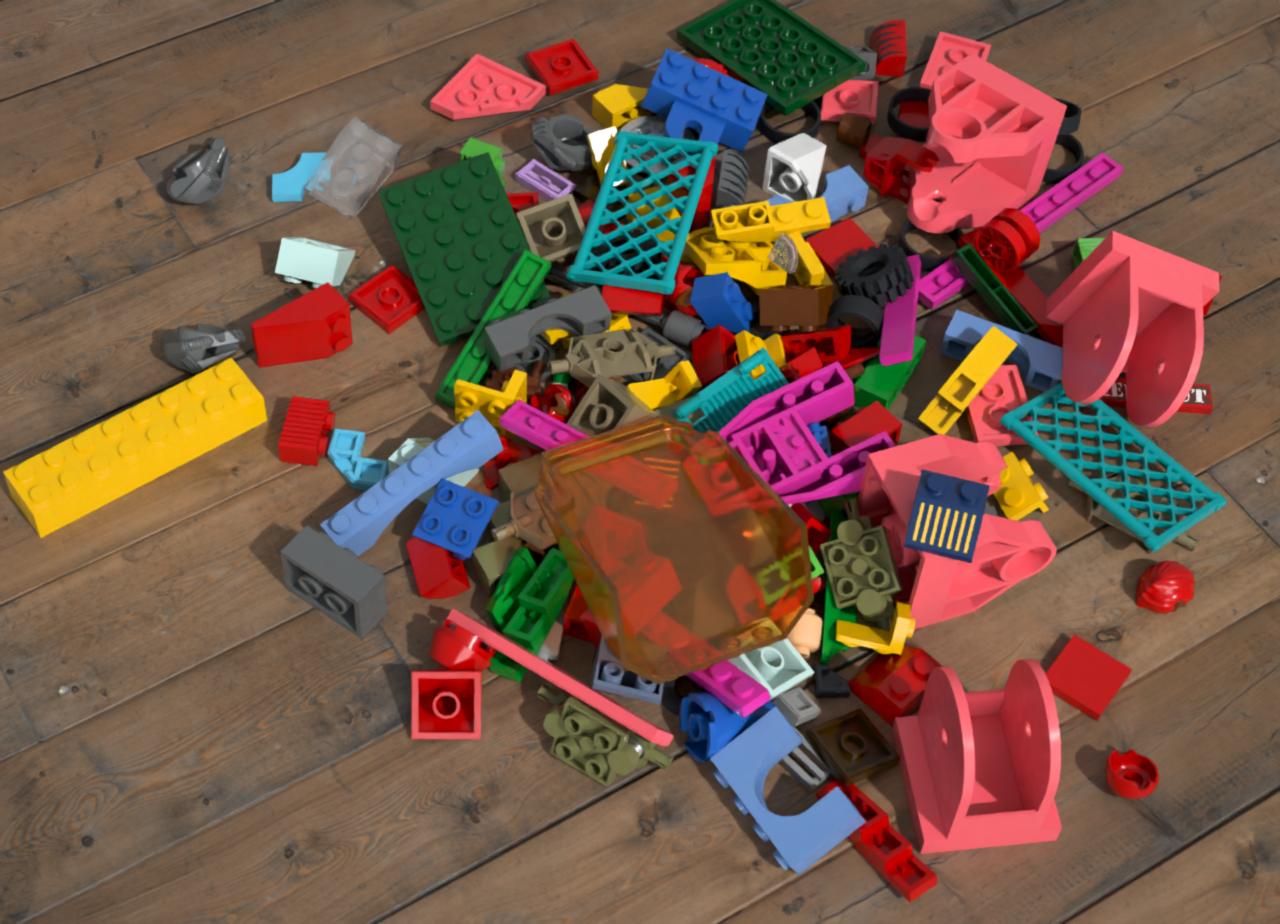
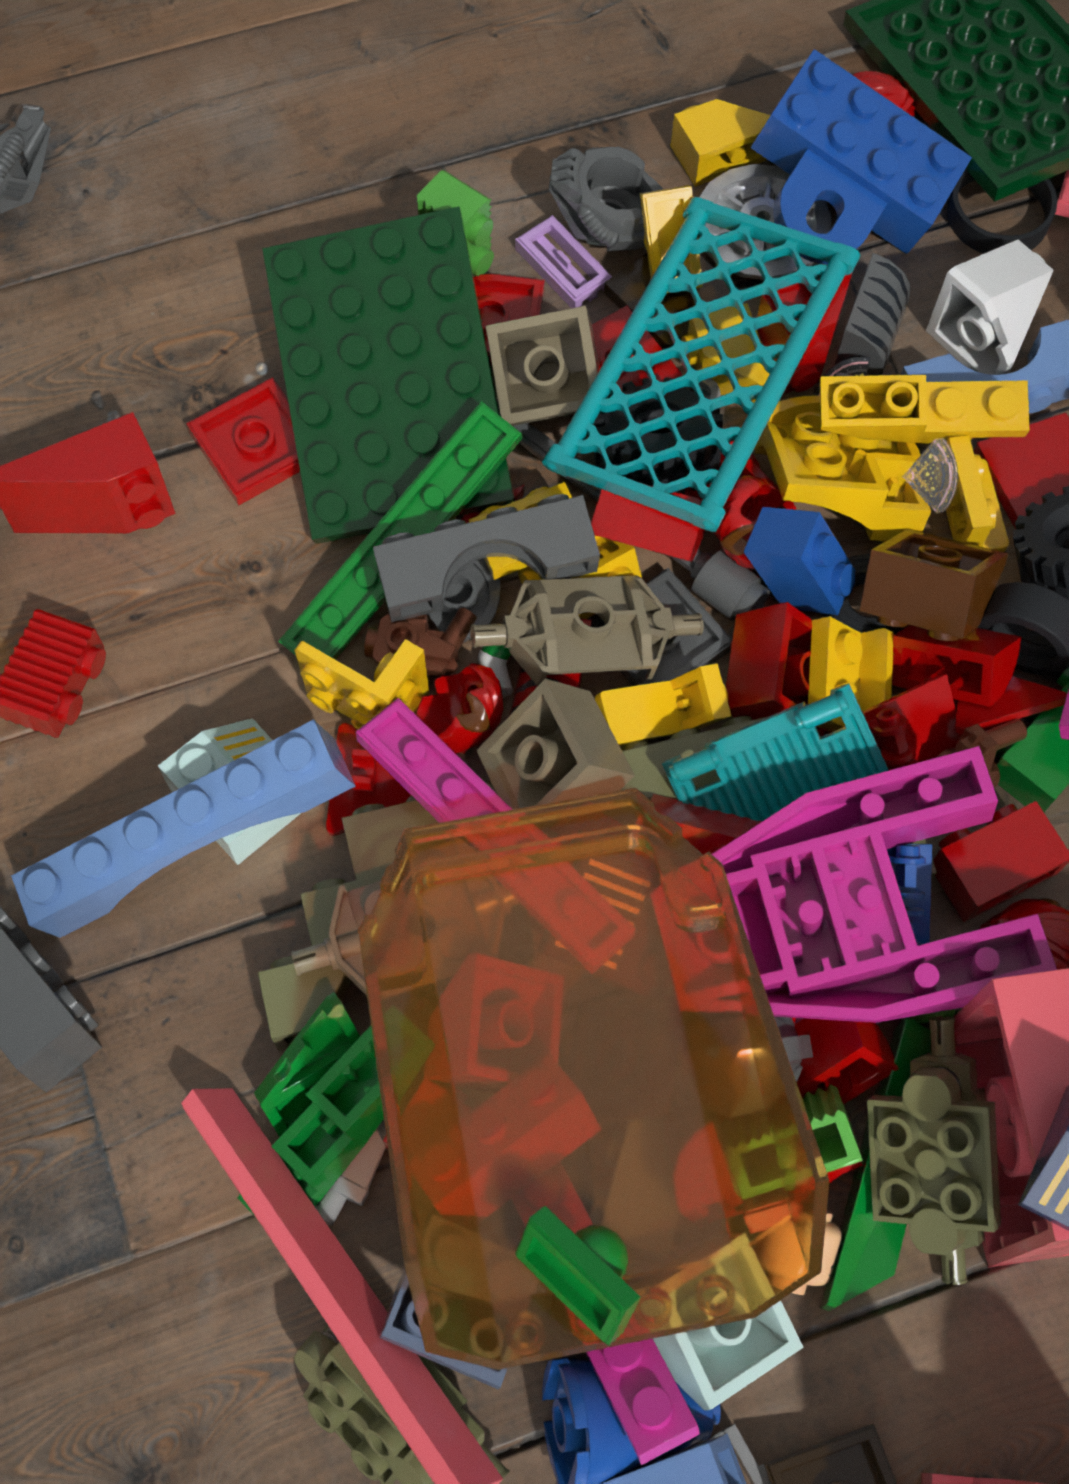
camera: 15 degrees right, 15 degrees up
(290, 184) = (153, 201): medium azure tile -> none
(313, 261) = (144, 352): light aqua slope -> none
(345, 456) = (107, 728): medium azure tile -> none
(354, 168) = (250, 190): clear slope -> none
(436, 570) = (202, 976): red brick -> none
(446, 704) = (142, 1276): red slope -> none
(455, 518) = (238, 912): blue hinge -> none
(458, 649) = (180, 1177): red cone -> none
(485, 90) = (503, 77): coral plate -> none
(562, 66) = (639, 51): red plate -> none
(690, 627) = (581, 1271): none -> green tile
(796, 706) = (763, 1404): light grey tile -> none
(829, 683) = (829, 1351): black tile -> none
(879, 639) = (934, 1294): yellow bracket -> none
(894, 683) = (951, 1384): red slope -> none

